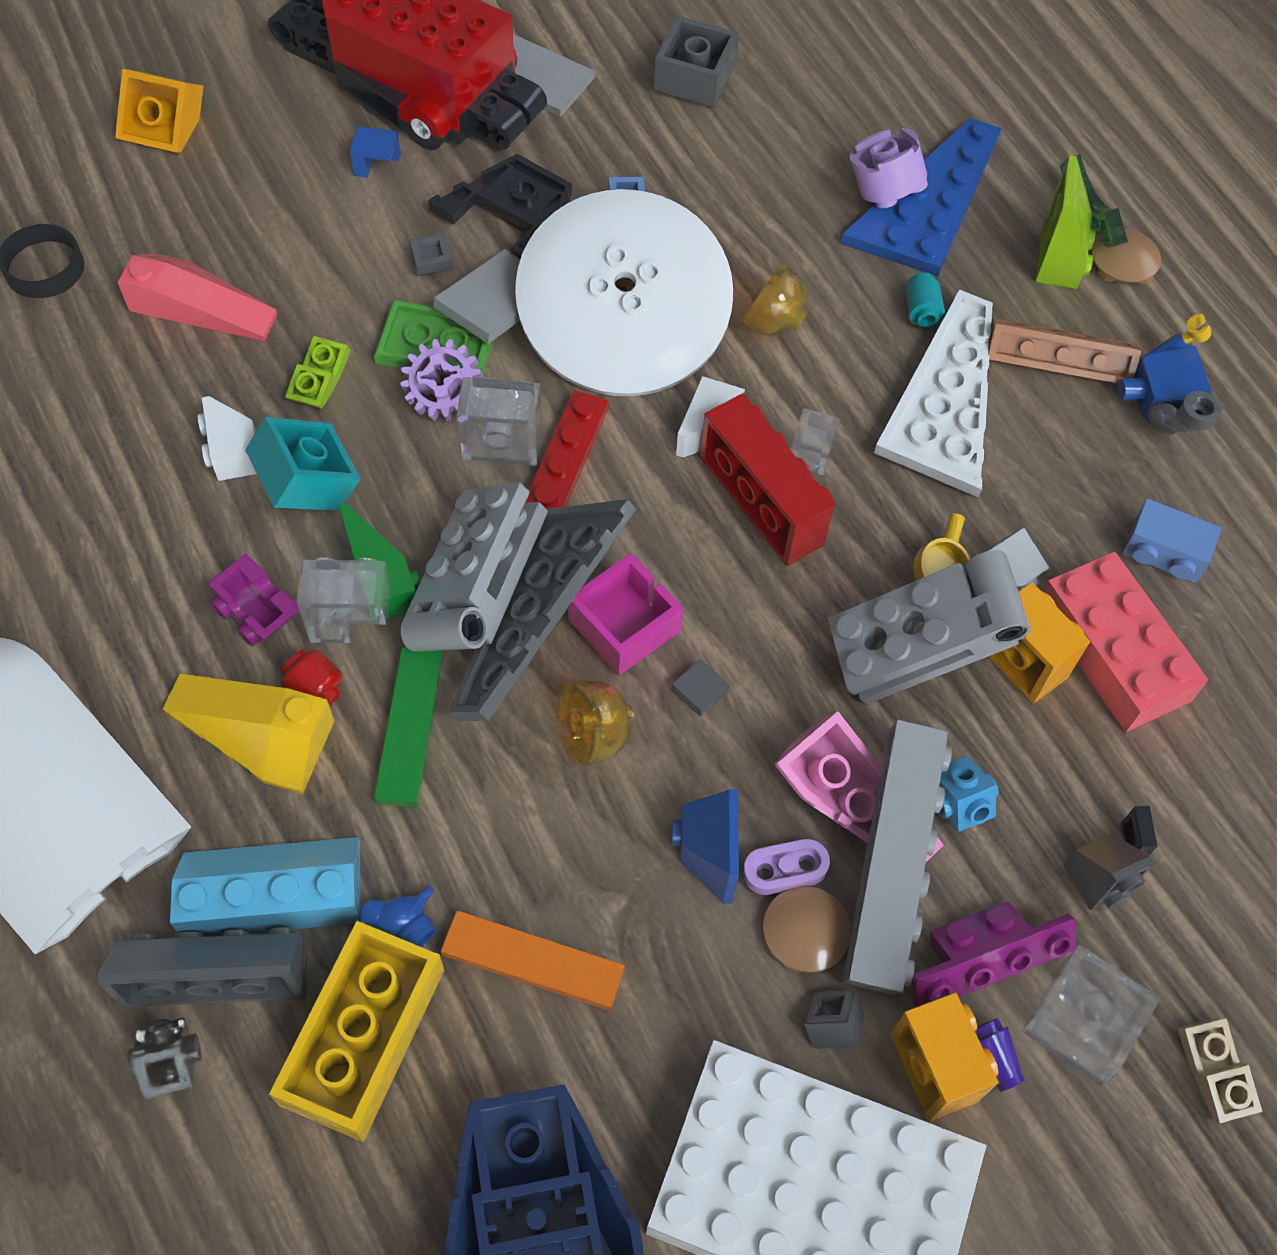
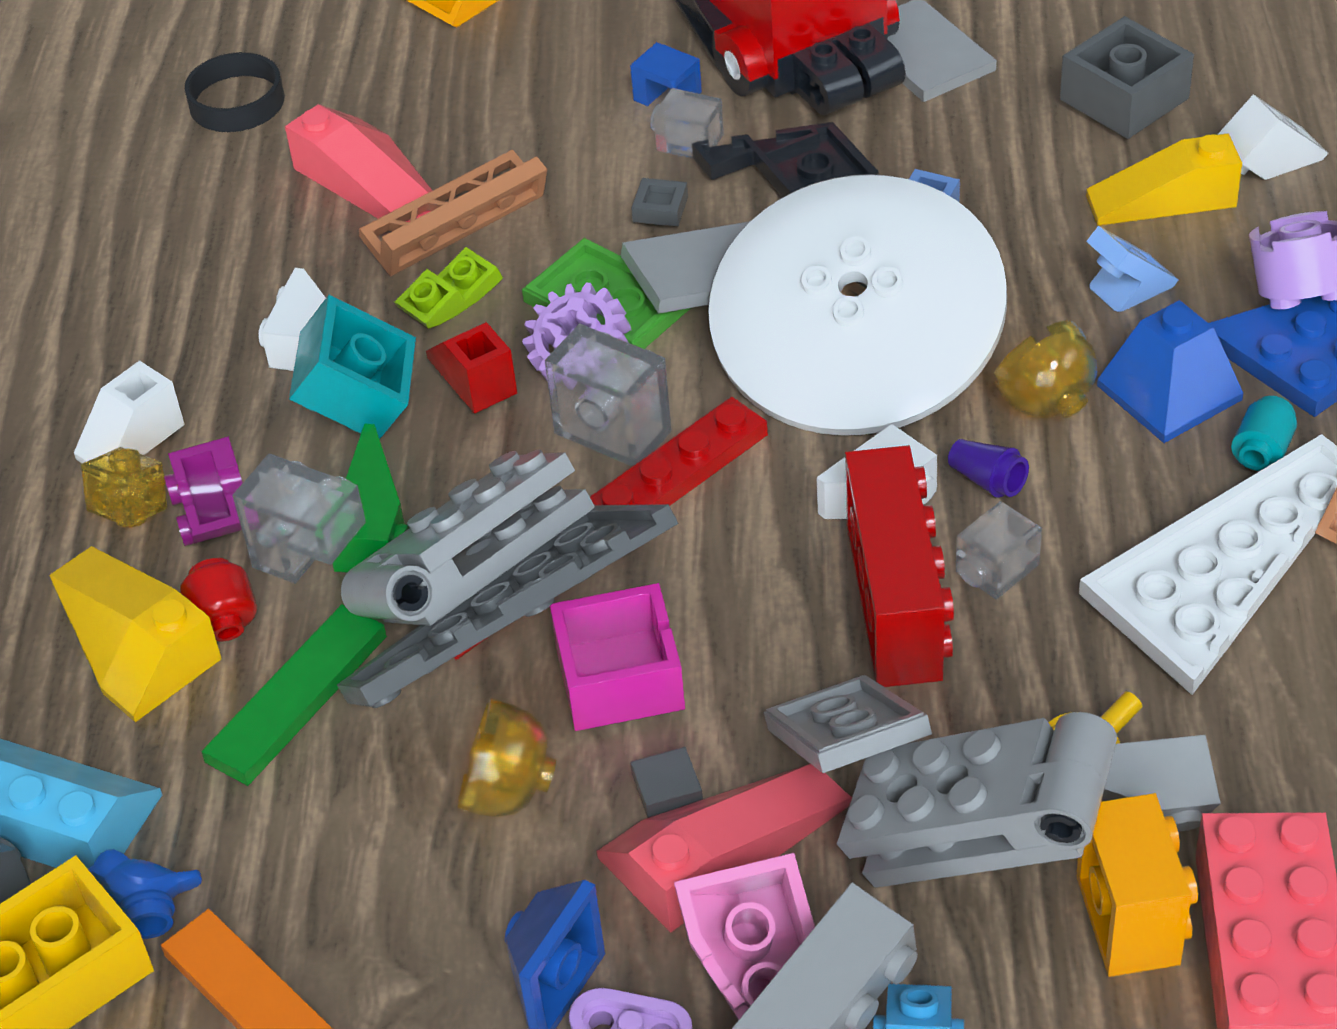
camera: 35 degrees right, 15 degrees down
(149, 566) = (131, 413): none -> white slope
(183, 619) = (124, 486): none -> clear yellow brick
(289, 314) = (459, 216): none -> nougat fence
(381, 428) = (476, 367): none -> red slope
(412, 184) = (686, 119): none -> clear brick
(751, 720) = (719, 835): none -> coral wedge
(768, 131) = (1178, 180): none -> yellow slope
(771, 382) = (990, 466): none -> dark purple cone
(774, 212) = (1126, 272): none -> light blue slope
(803, 604) = (846, 723): none -> light grey tile
(808, 85) = (1270, 141): none -> white slope
(845, 275) = (1171, 373): none -> blue slope

